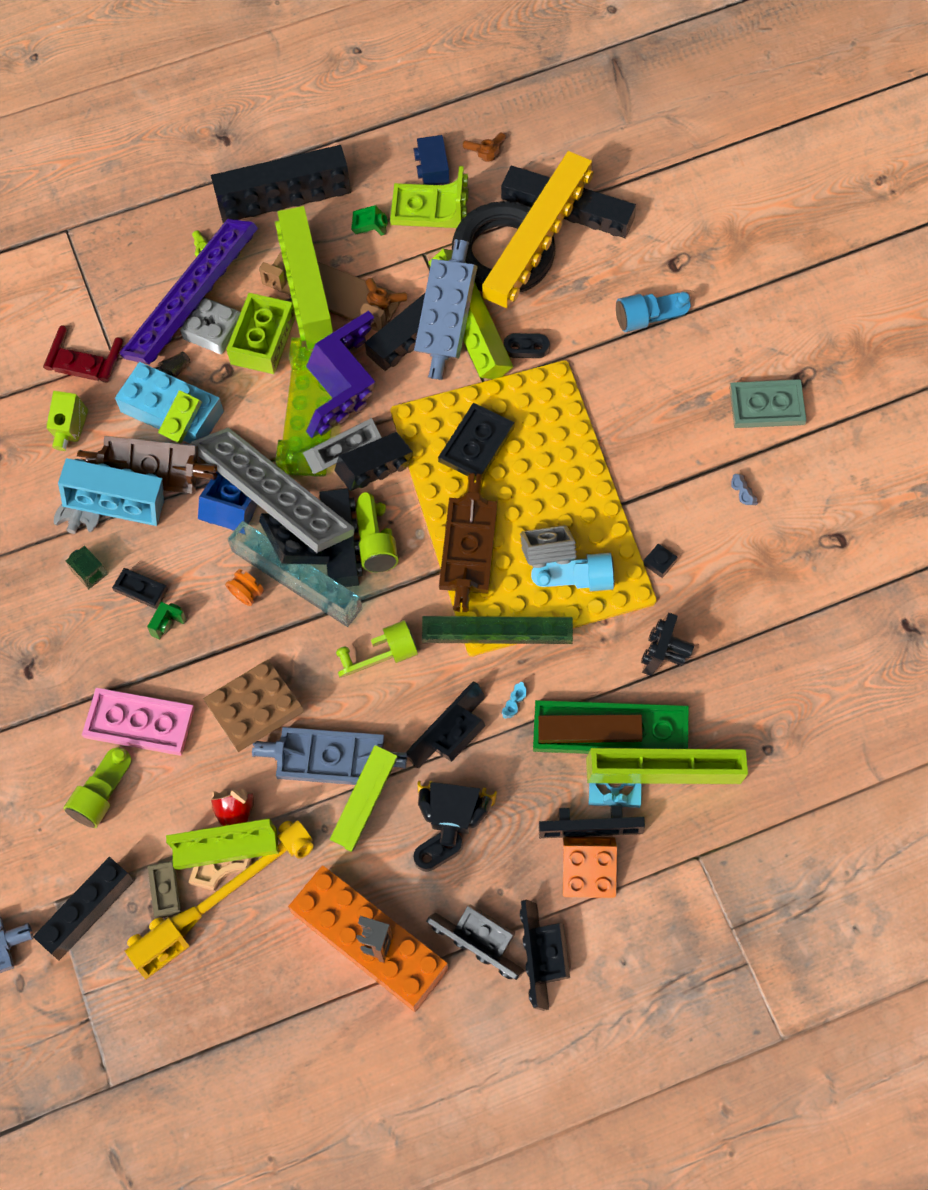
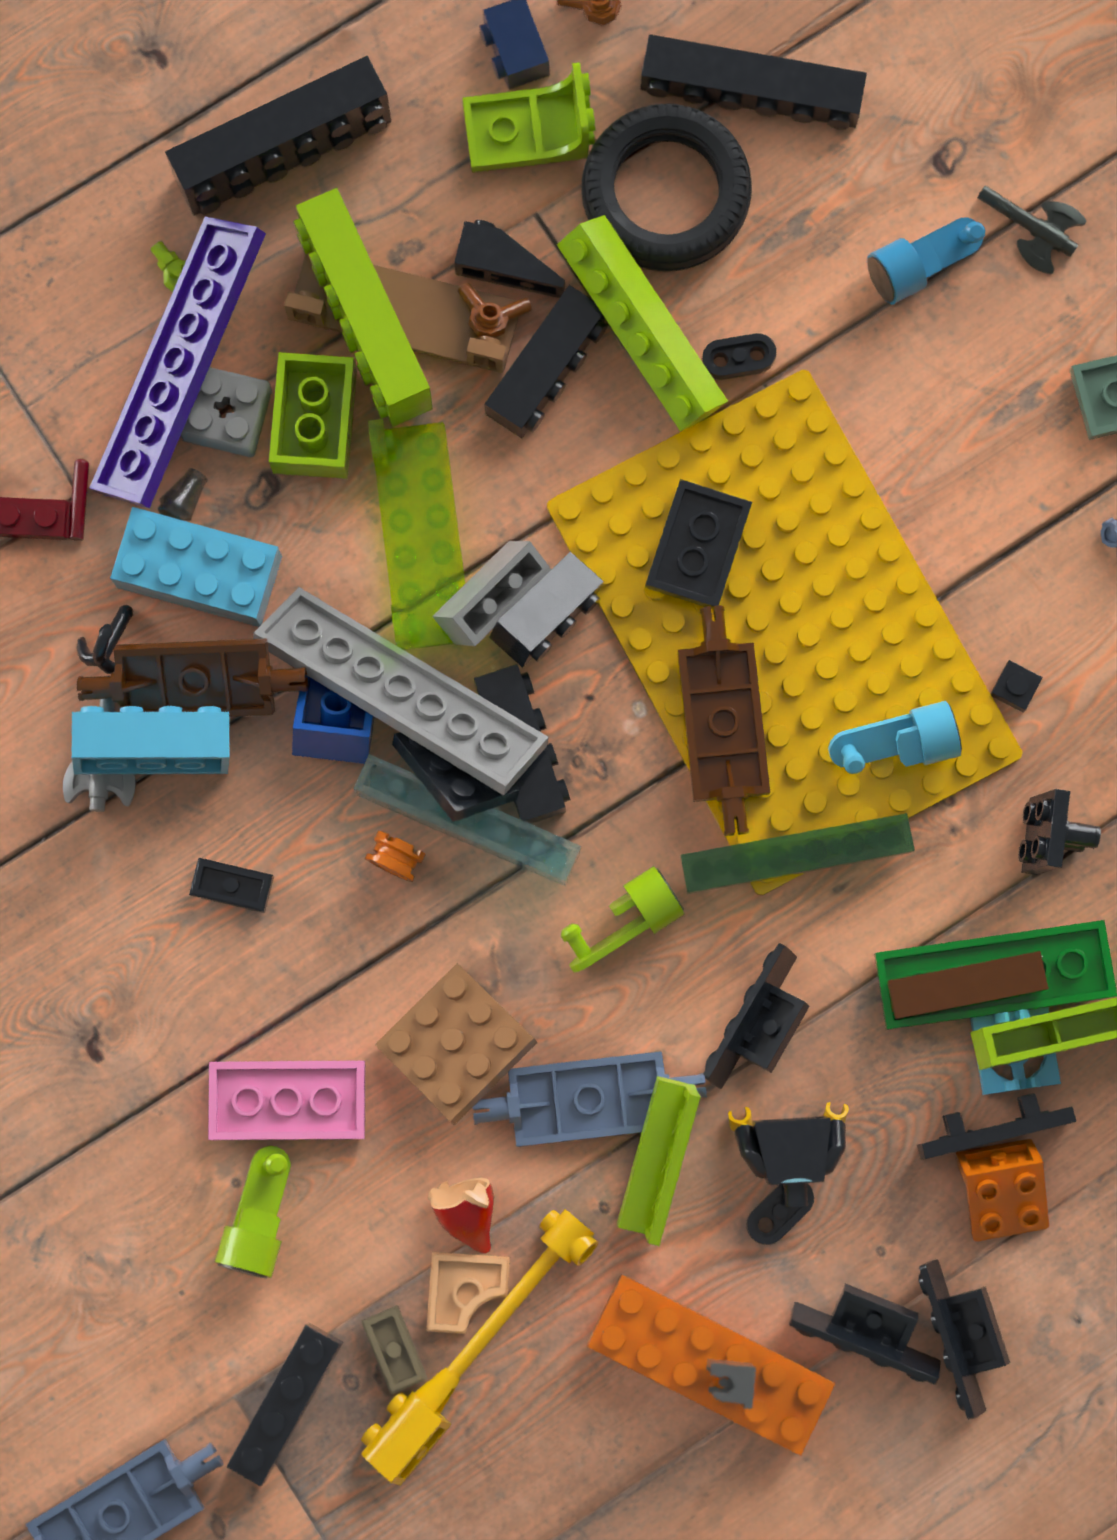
camera: 15 degrees left, 15 degrees up
(66, 419) = (34, 612): lime torso -> none
(86, 567) = (138, 867): clear green brick -> none
(96, 440) = (106, 642): none -> black piece
(162, 618) = (280, 936): green bracket -> none
(180, 417) = (227, 597): lime plate -> none
(223, 844) = (468, 1271): lime fence -> none
(340, 374) = (463, 474): dark purple bracket -> none
(369, 219) = (436, 173): green bracket -> none
(376, 549) = (582, 748): lime piece -> none
(395, 271) = (497, 258): none -> black slope
(446, 309) = (606, 327): sand blue plate -> none
(516, 696) = (838, 965): medium azure piece -> none
(537, 229) = (722, 155): yellow brick -> none
(548, 546) = (849, 706): light grey brick -> none
(730, 311) = (1047, 233): none -> pearl dark grey piece

